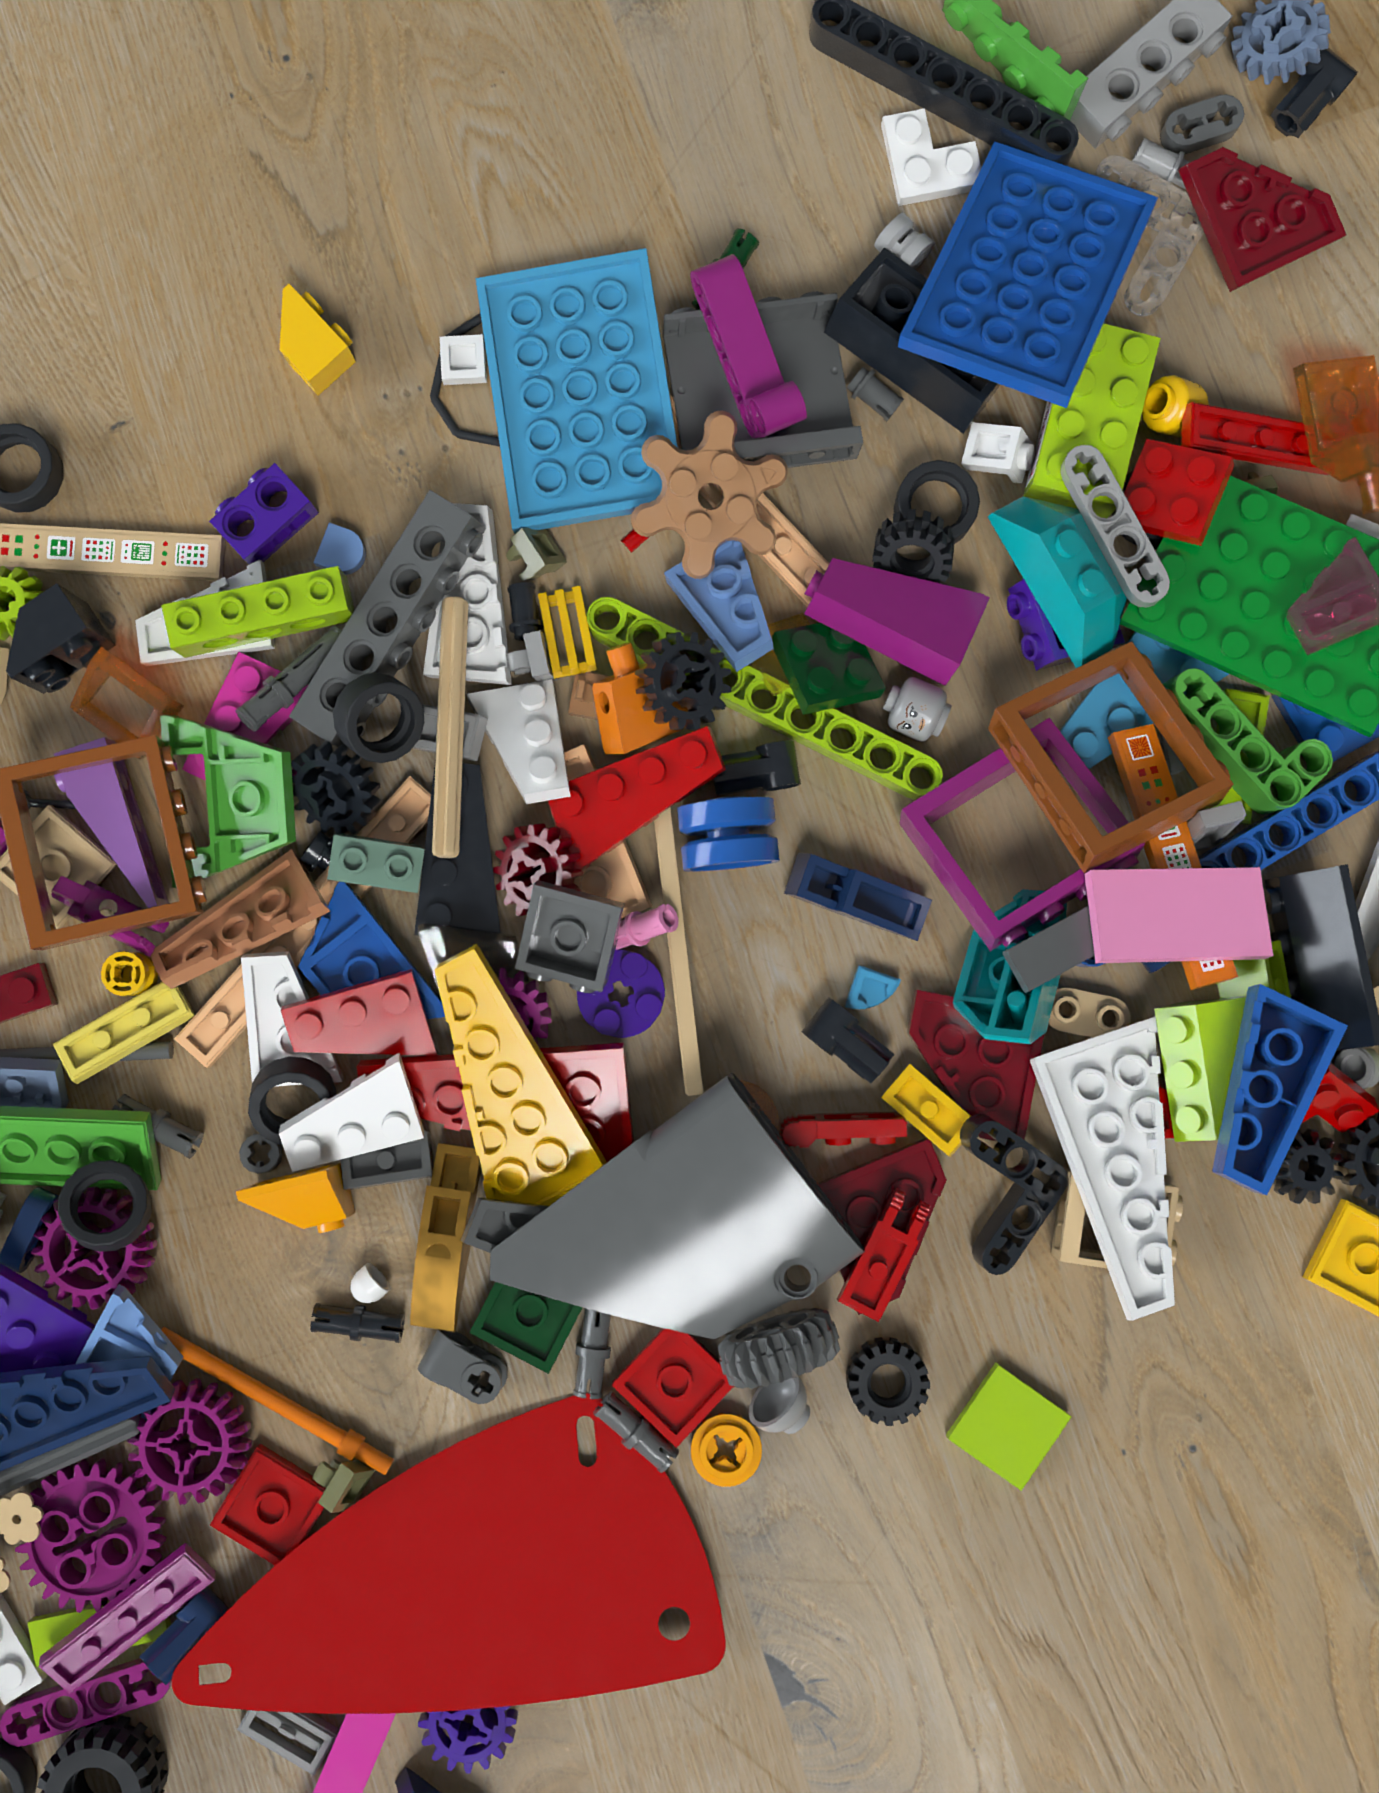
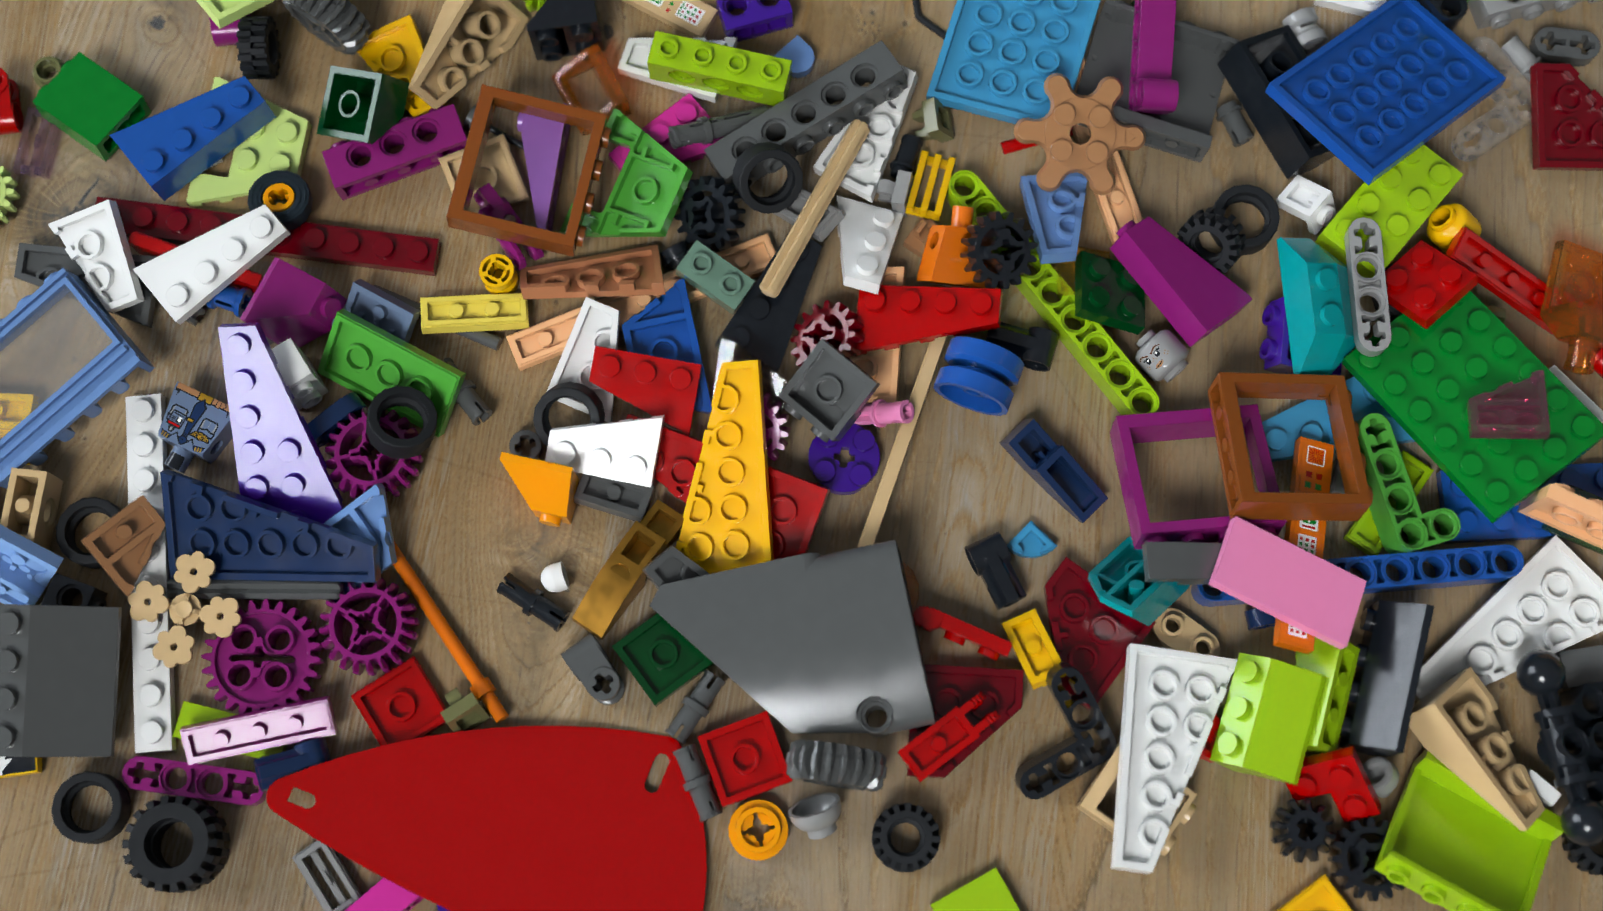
camera: 30 degrees right, 10 degrees down
(1214, 824) = (1345, 536): light grey tile -> none
(1272, 1082) = (1309, 730): blue wedge -> none

